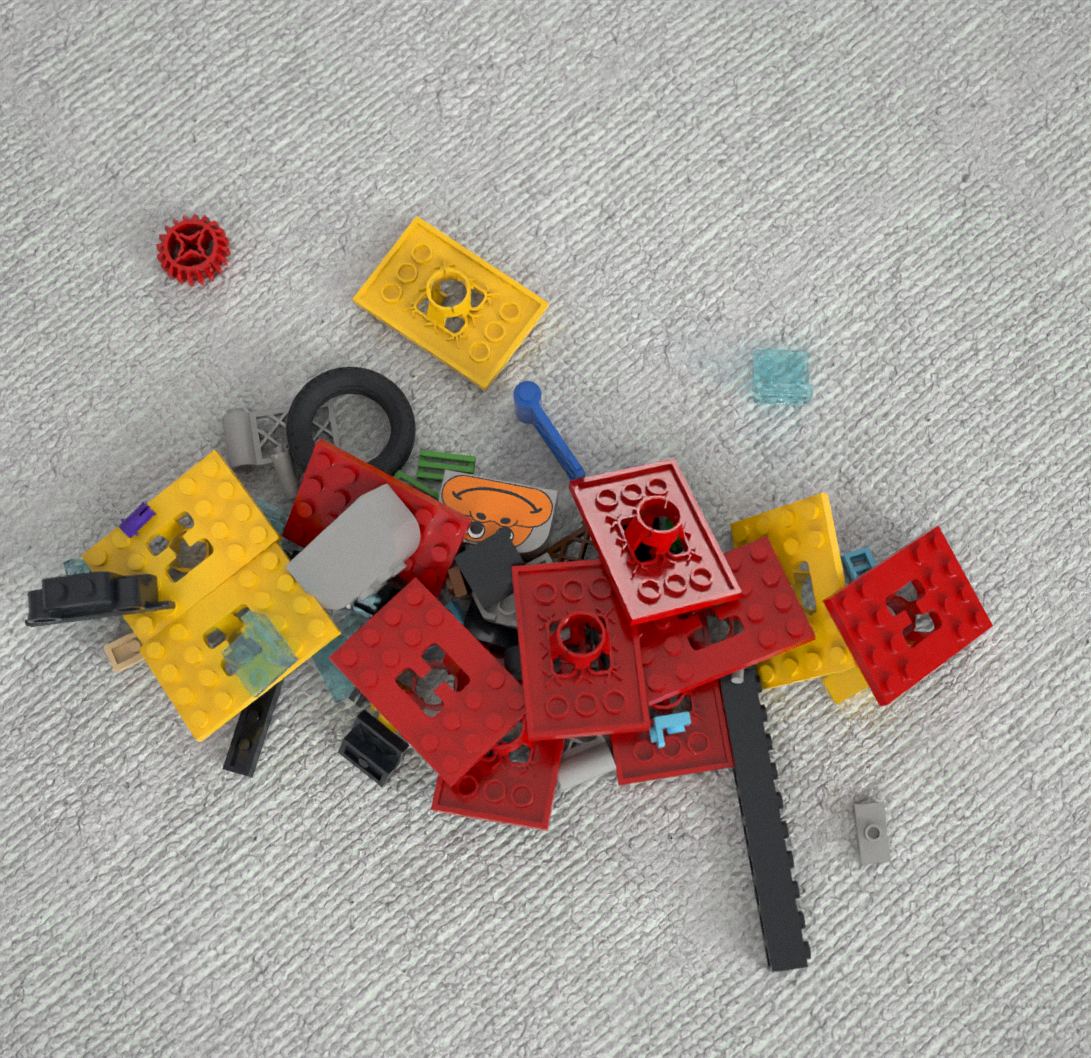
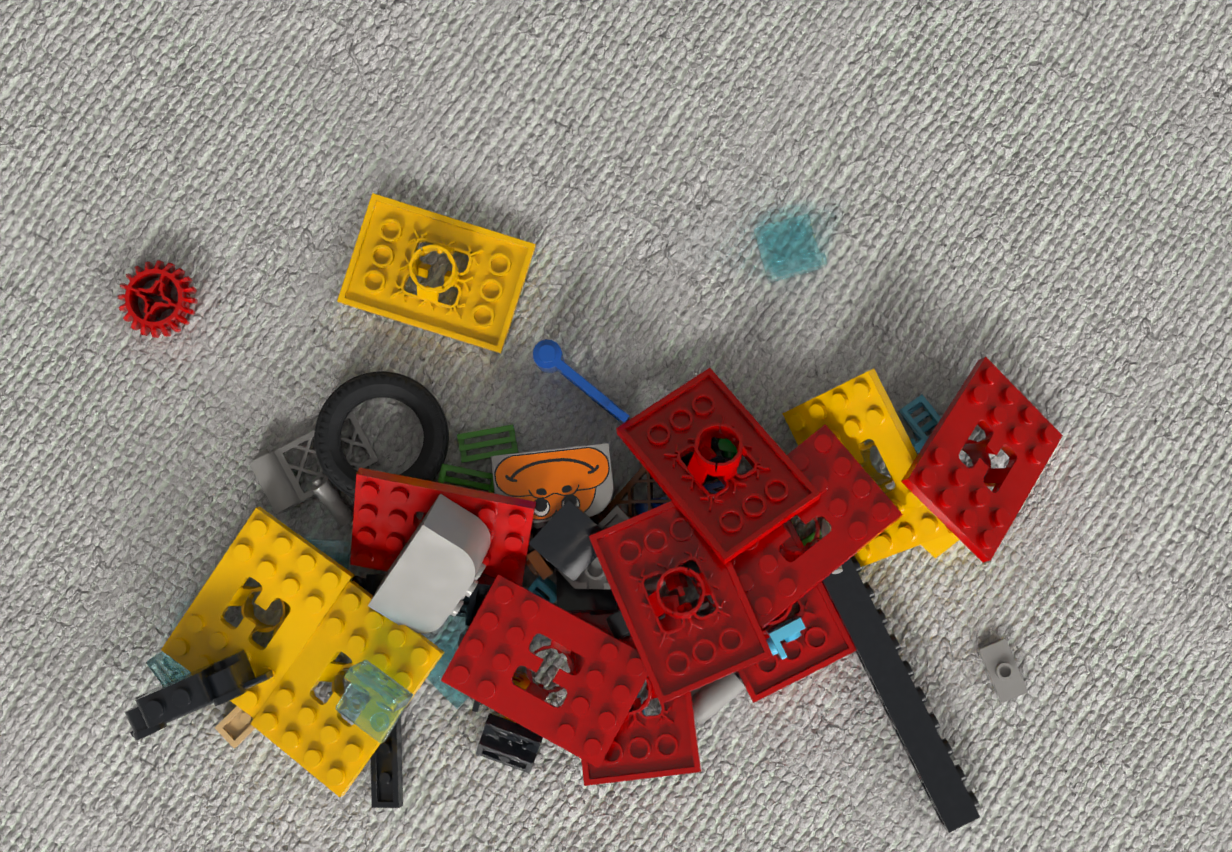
camera: 20 degrees left, 10 degrees up
(136, 520) = (203, 603): dark purple pin -> none

